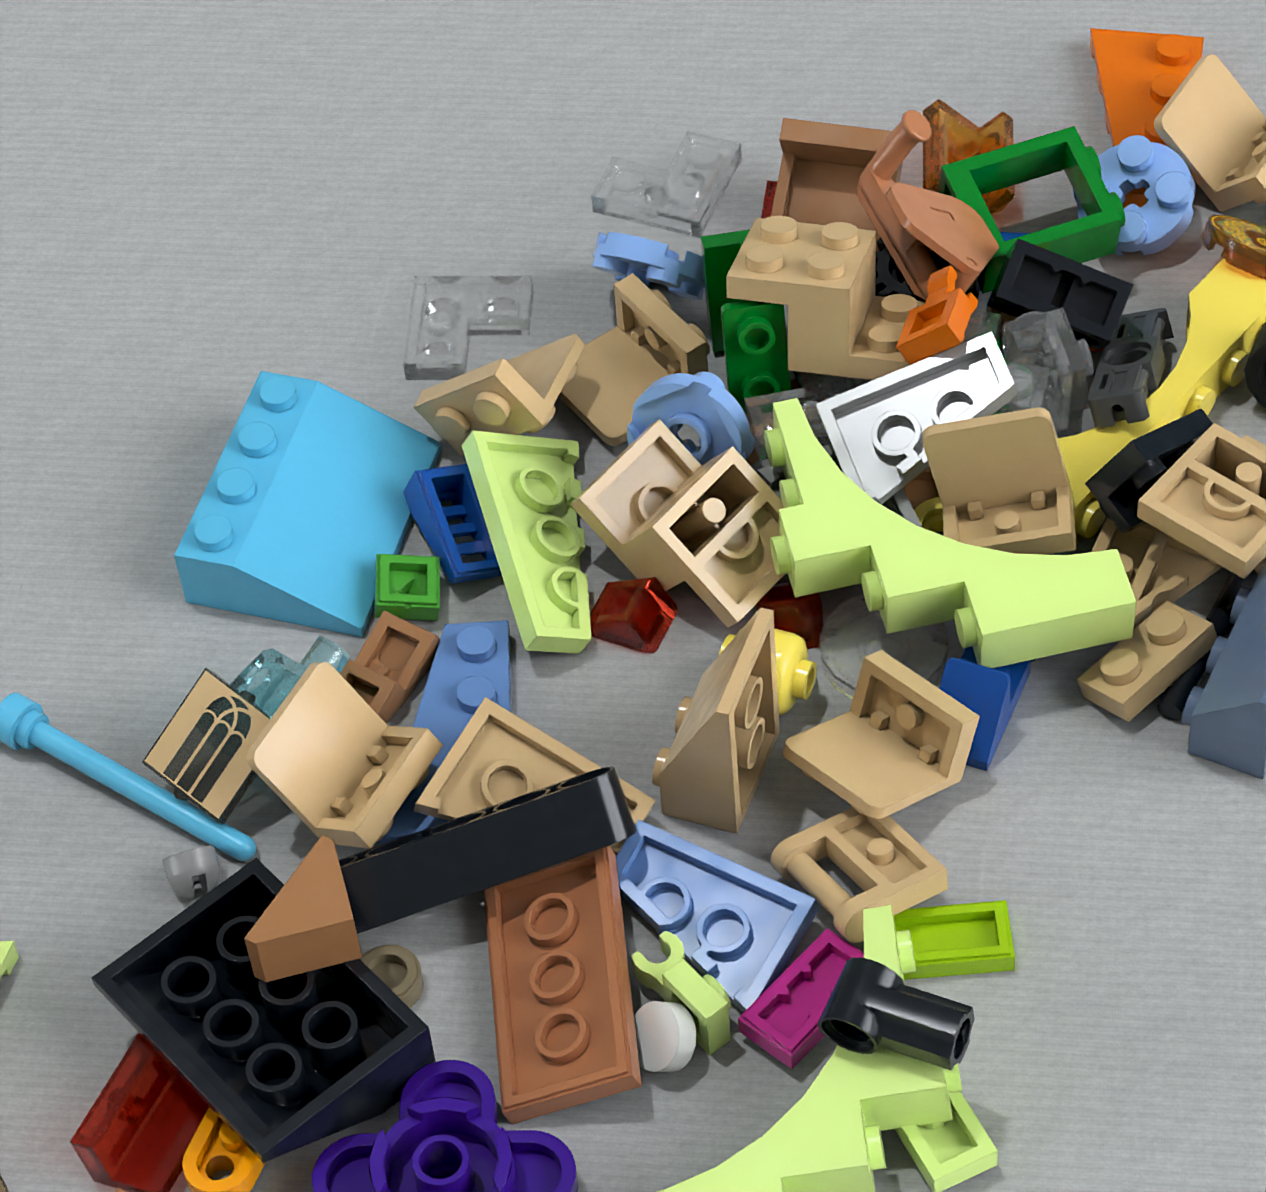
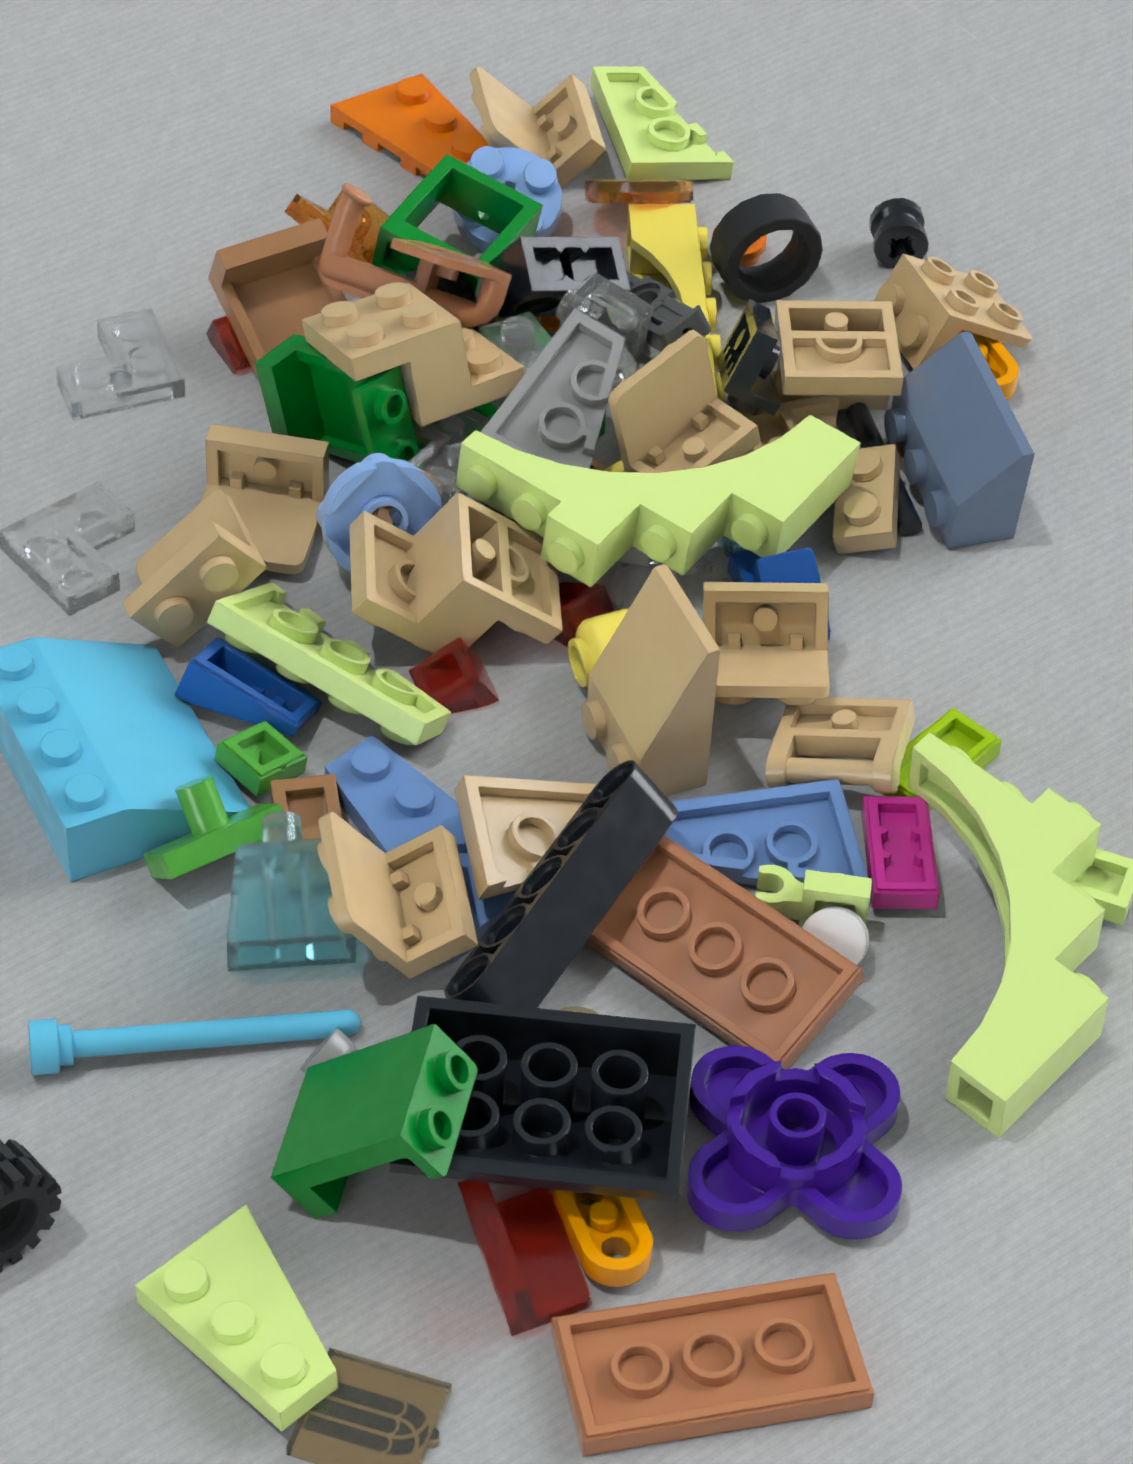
camera: 50 degrees left, 5 degrees down
(131, 937) = (373, 1110): none -> green panel
(208, 745) = (265, 948): piece -> none
(296, 624) = (211, 829): none -> bright green tile
(307, 921) = (539, 992): medium nougat slope -> none
(649, 261) = (192, 414): light blue plate -> none
(878, 1010) = (1015, 799): black piece -> none
(939, 321) = (522, 323): orange plate -> none

